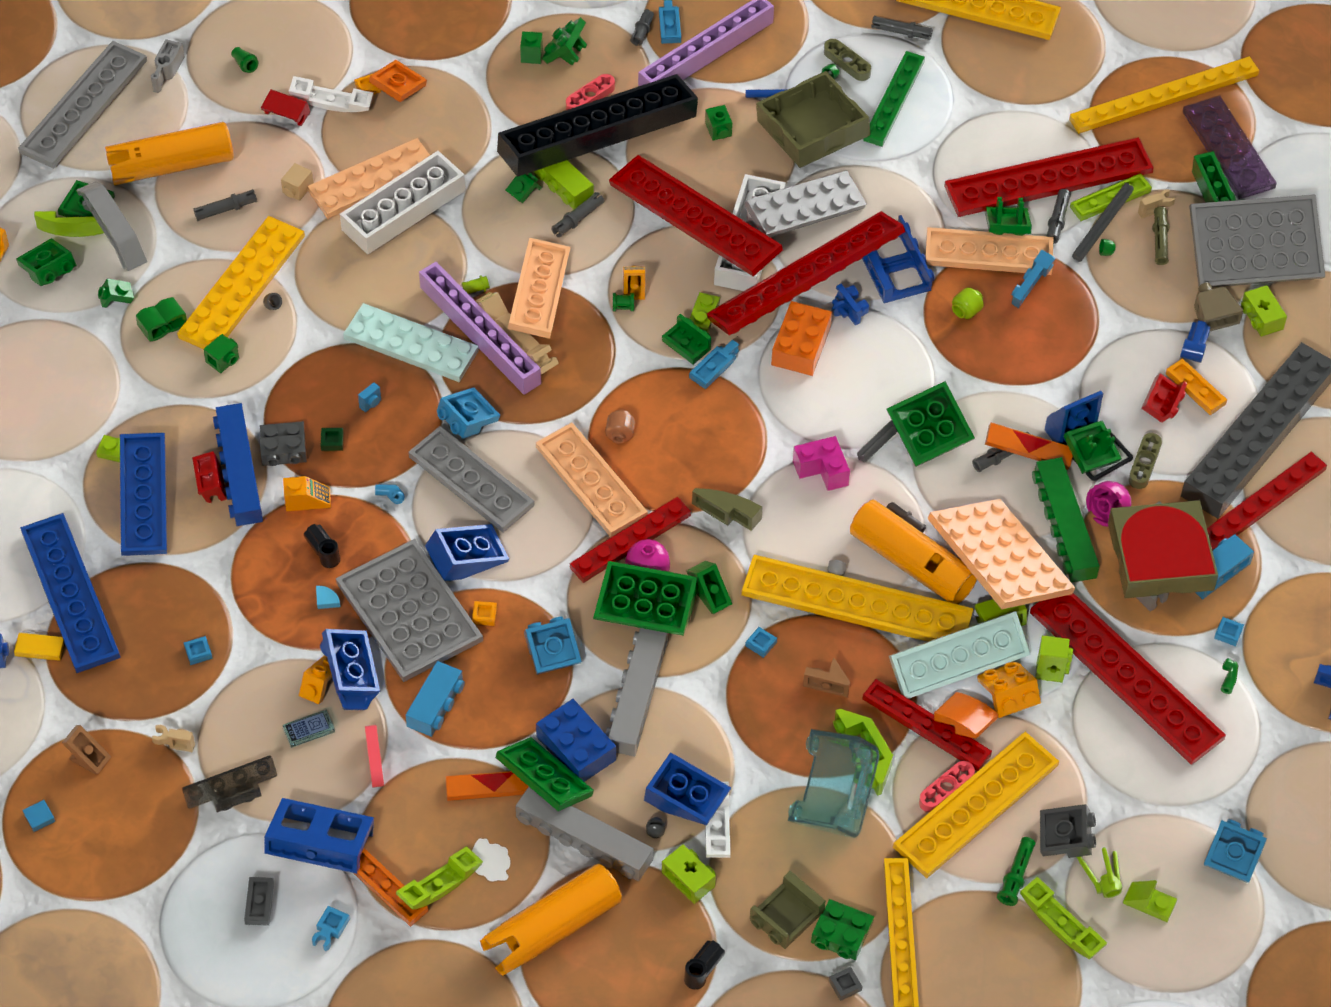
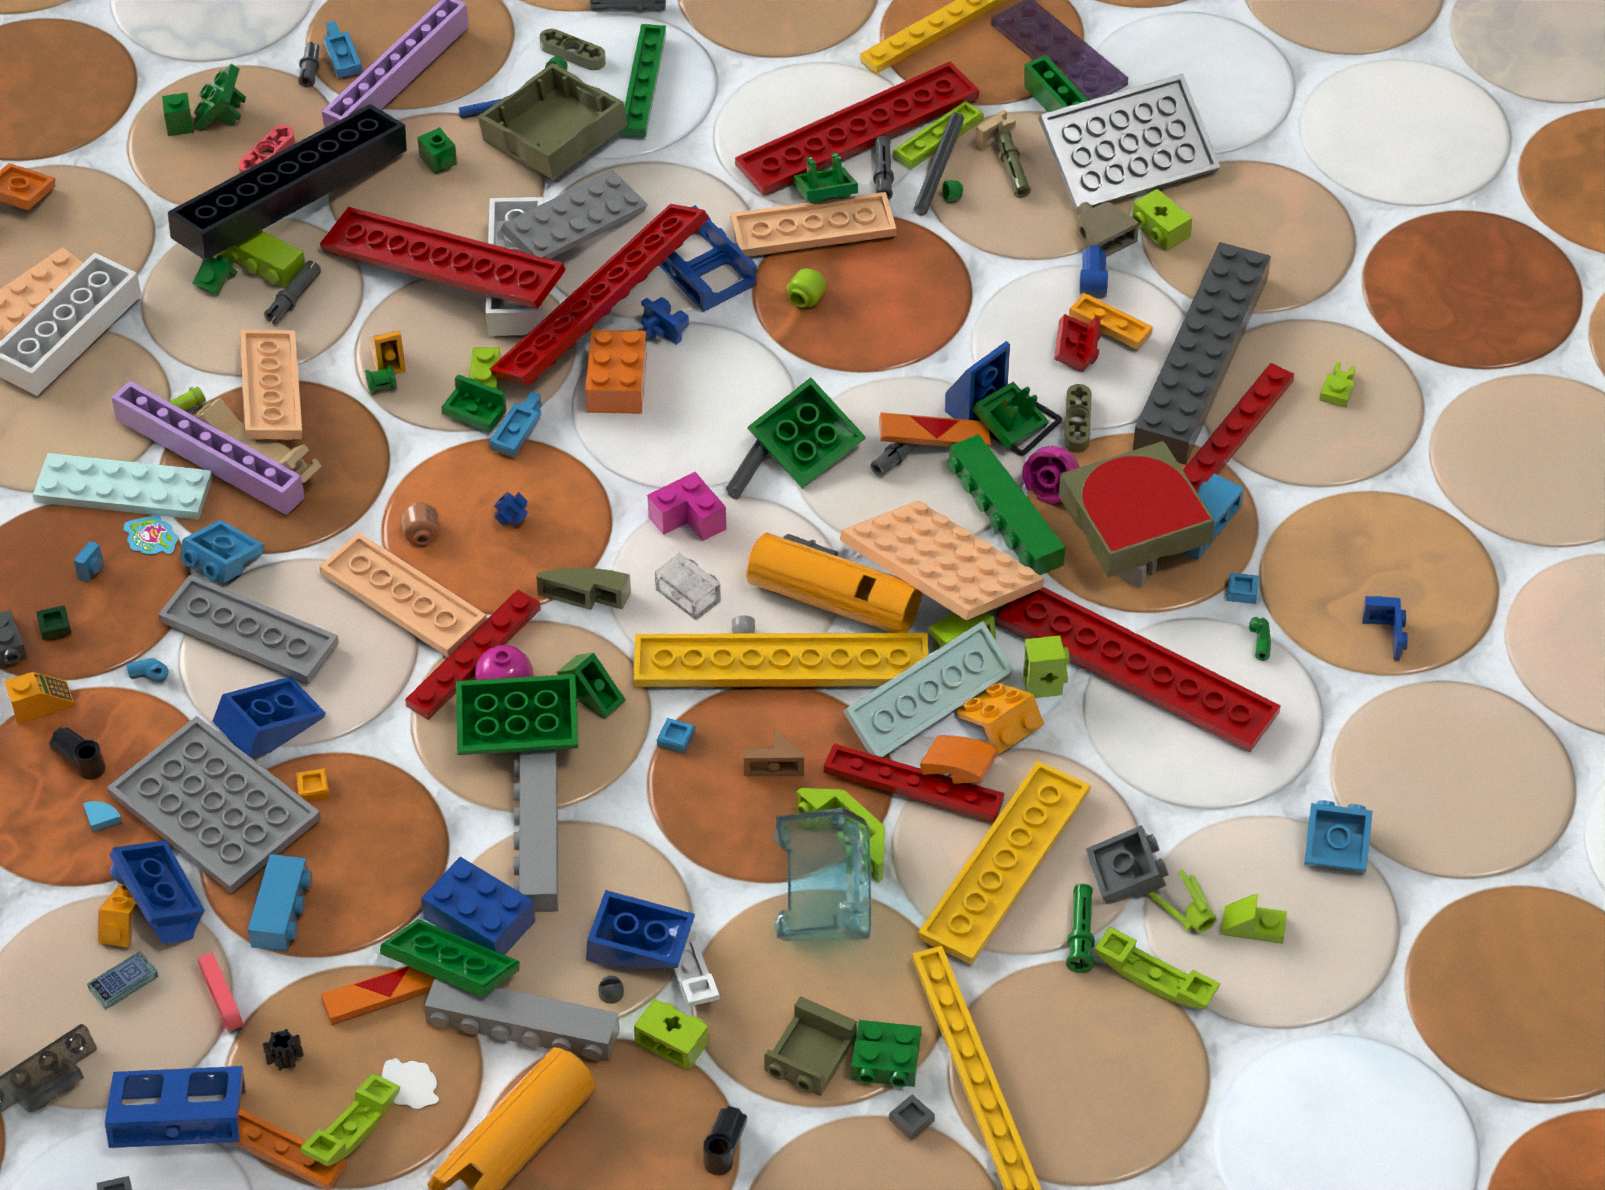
camera: 15 degrees left, 5 degrees down
(406, 811) = (283, 1049): none -> black gear
(421, 386) = (150, 535): none -> sticker
(552, 645) = (412, 801): dark azure plate -> none
(690, 431) = (511, 509): none -> blue gear
(804, 525) = (688, 586): none -> clear brick
(950, 777) = (961, 837): coral beam -> none
(1041, 266) = (882, 227): dark azure plate -> none

